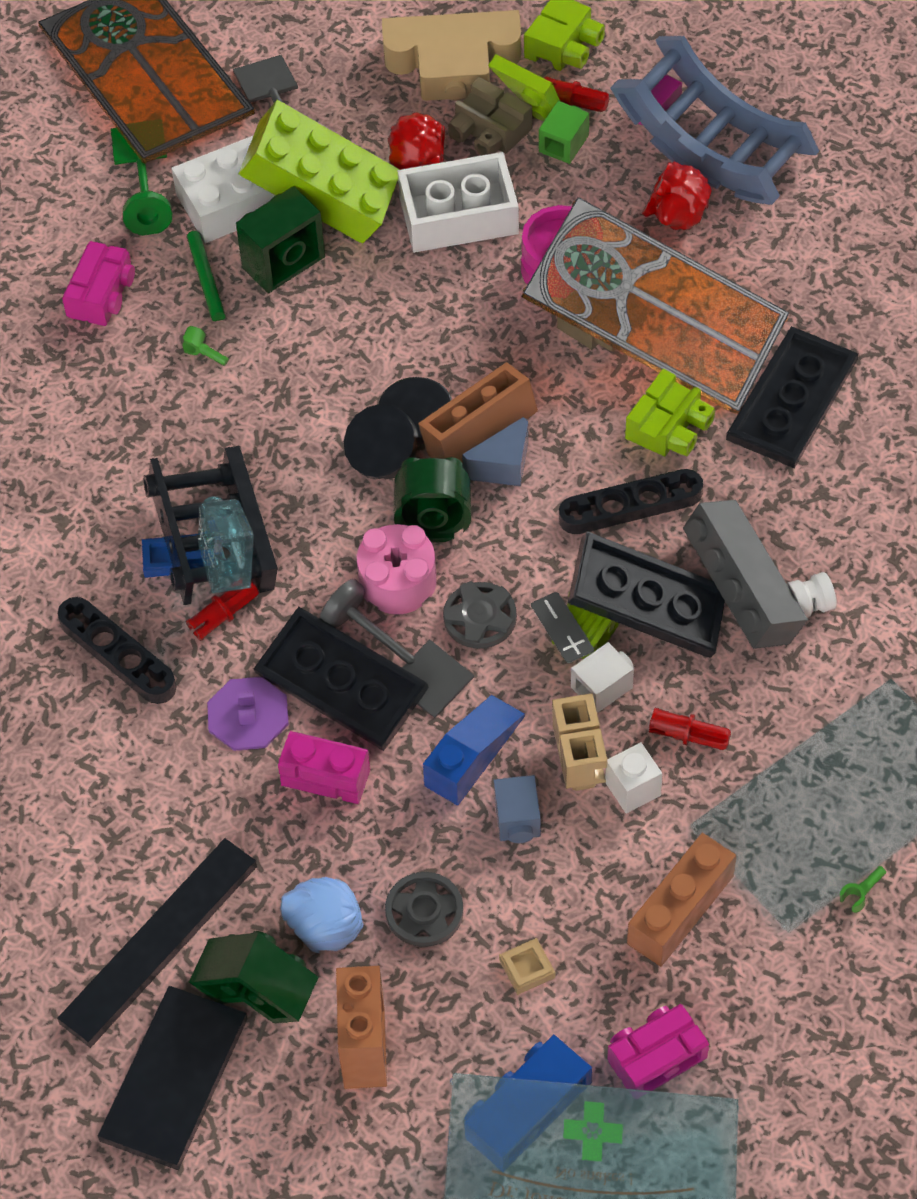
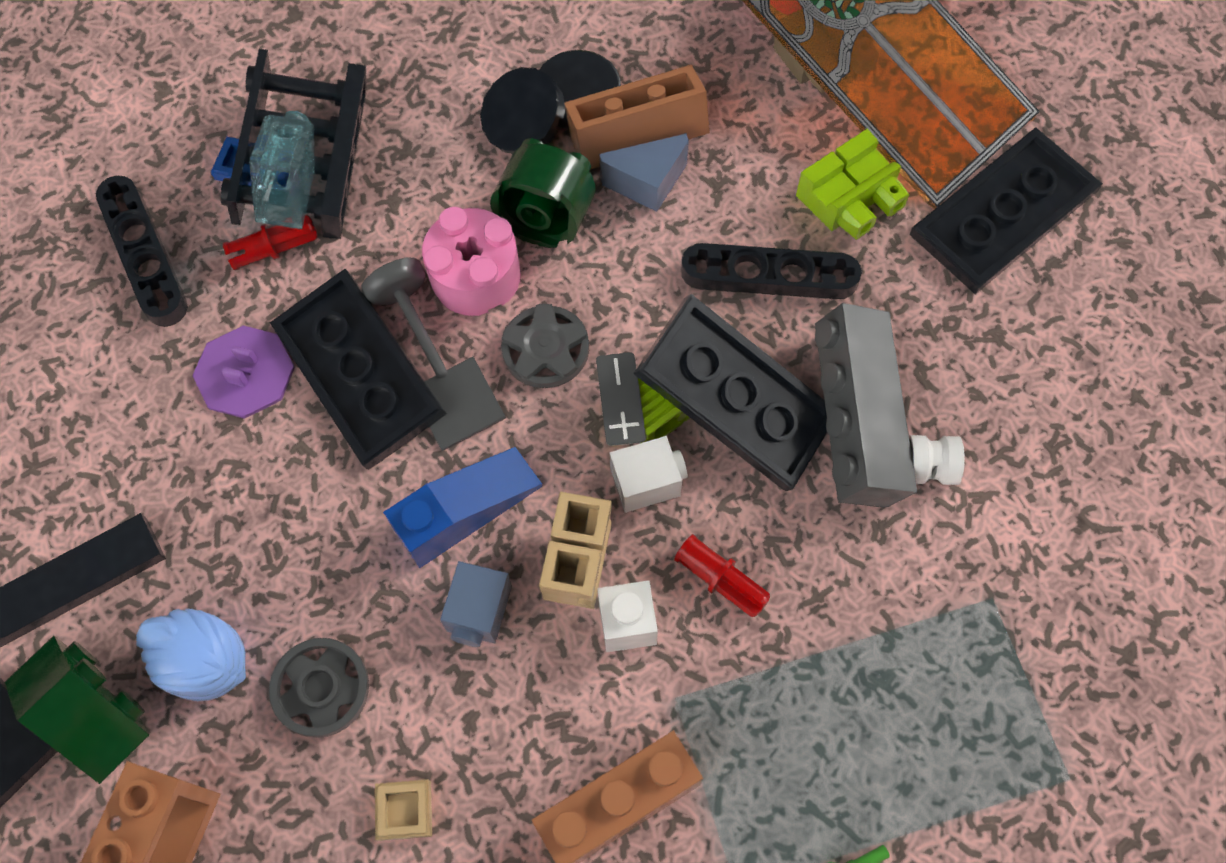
camera: 20 degrees right, 10 degrees up
(324, 767) = (283, 469): dark pink brick -> none

